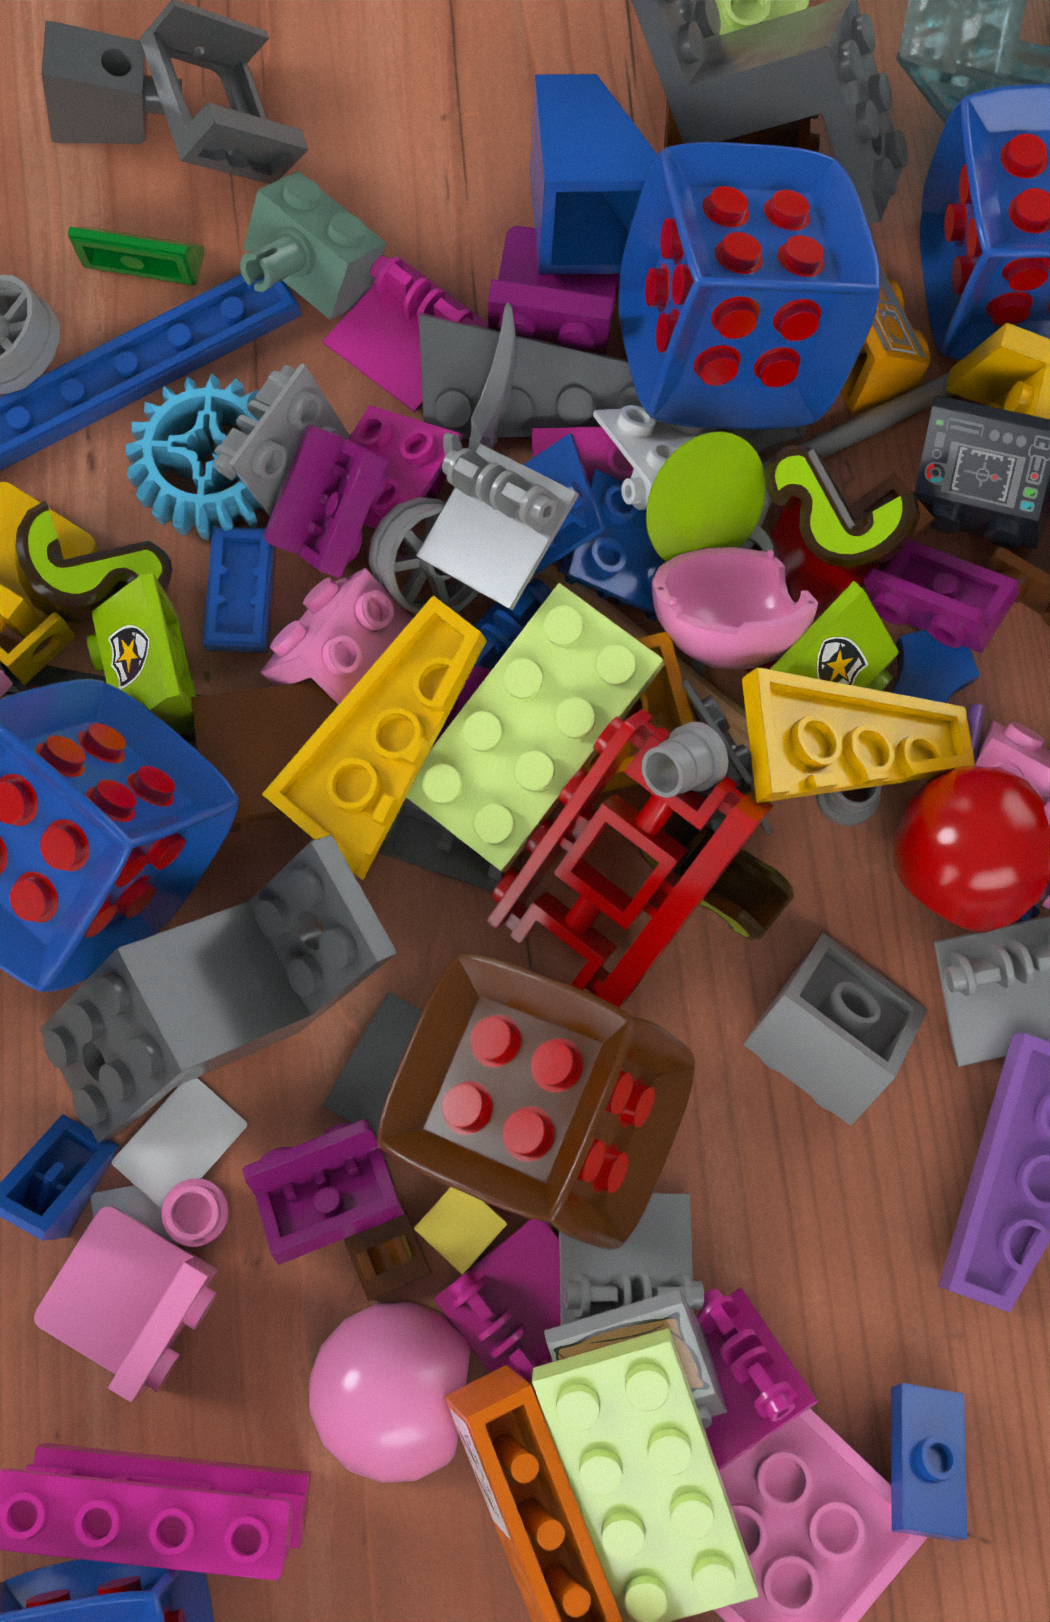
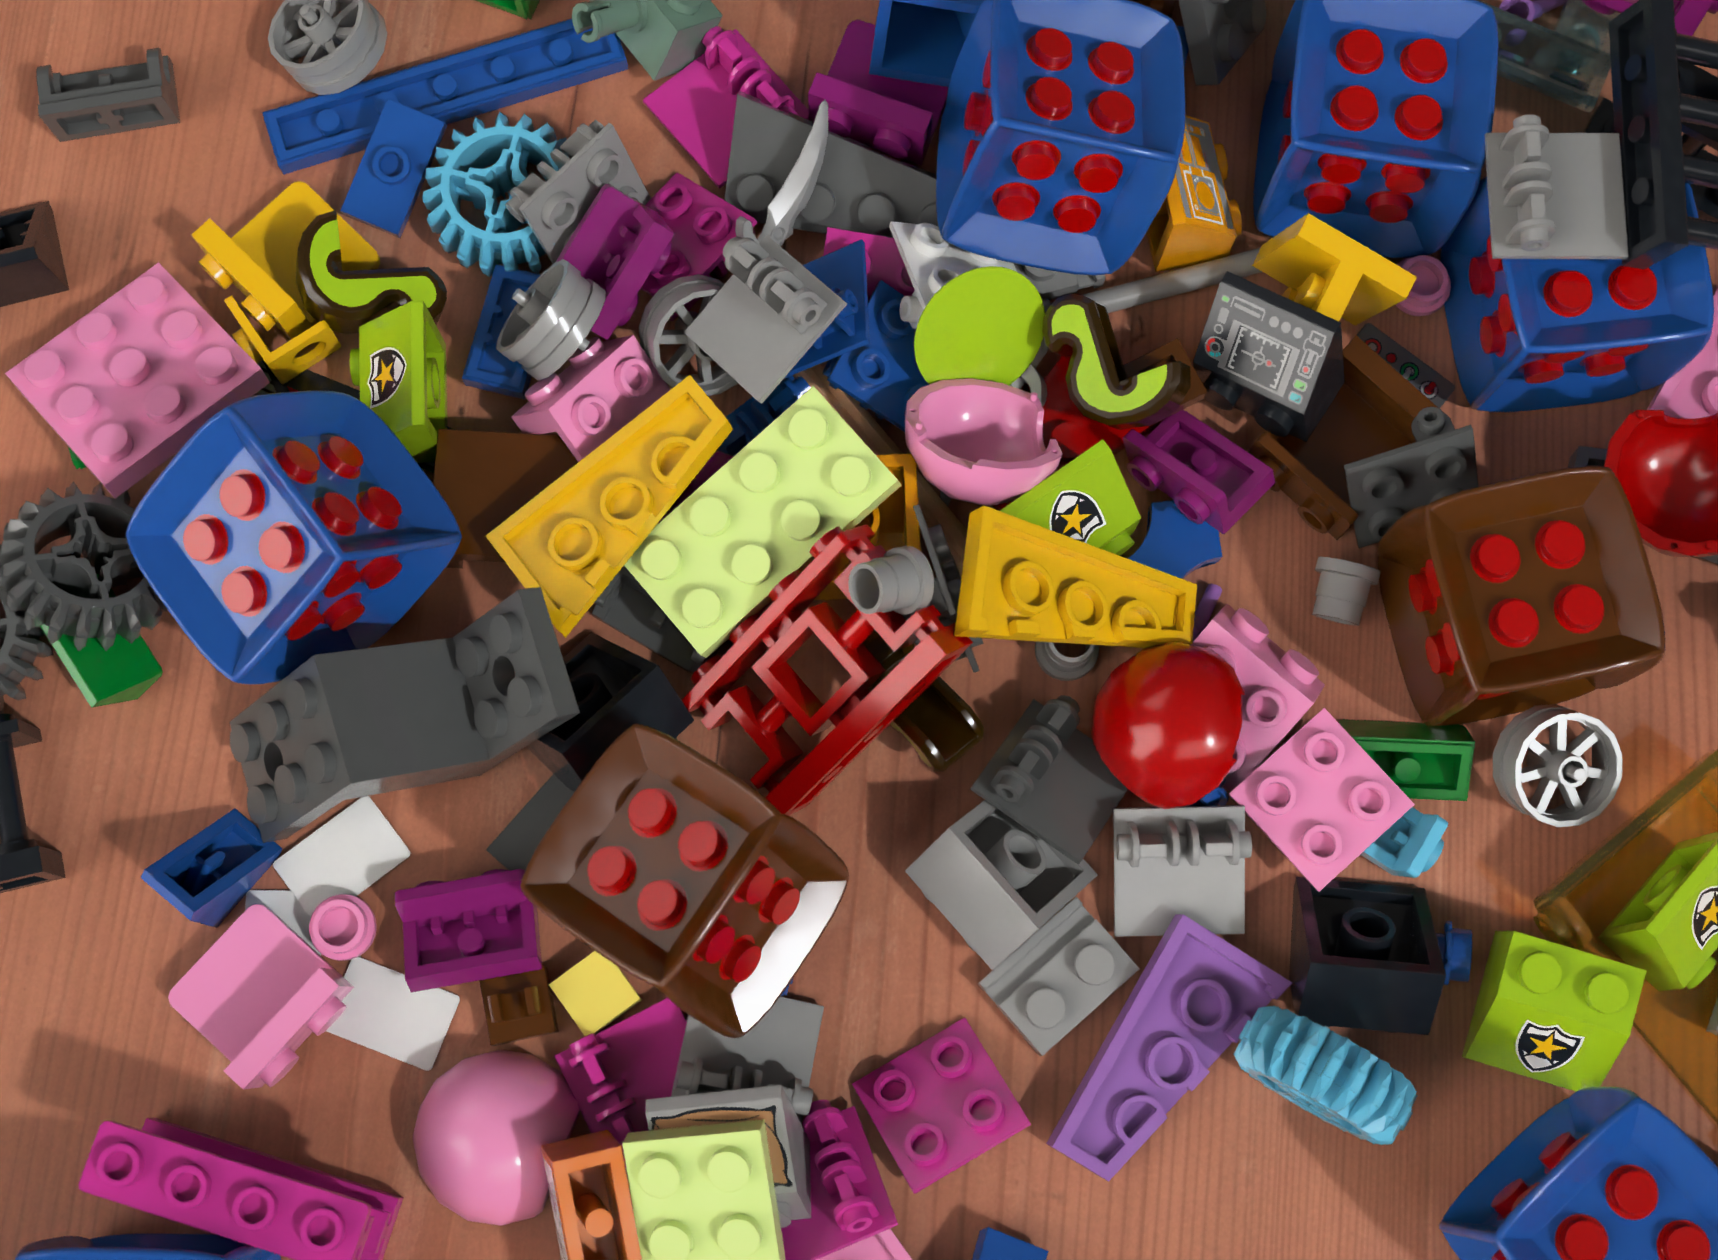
camera: 10 degrees right, 0 degrees up
(92, 451) = (393, 168): none -> blue plate
(261, 1293) = (392, 1019): none -> white sticker
(282, 568) = (551, 320): none -> light grey wheel
(427, 929) = (612, 694): none -> black slope
(827, 1270) = (940, 1105): none -> dark pink hinge
(867, 924) = (1052, 778): none -> dark grey hinge
(914, 1121) = (1058, 976): none -> light grey plate

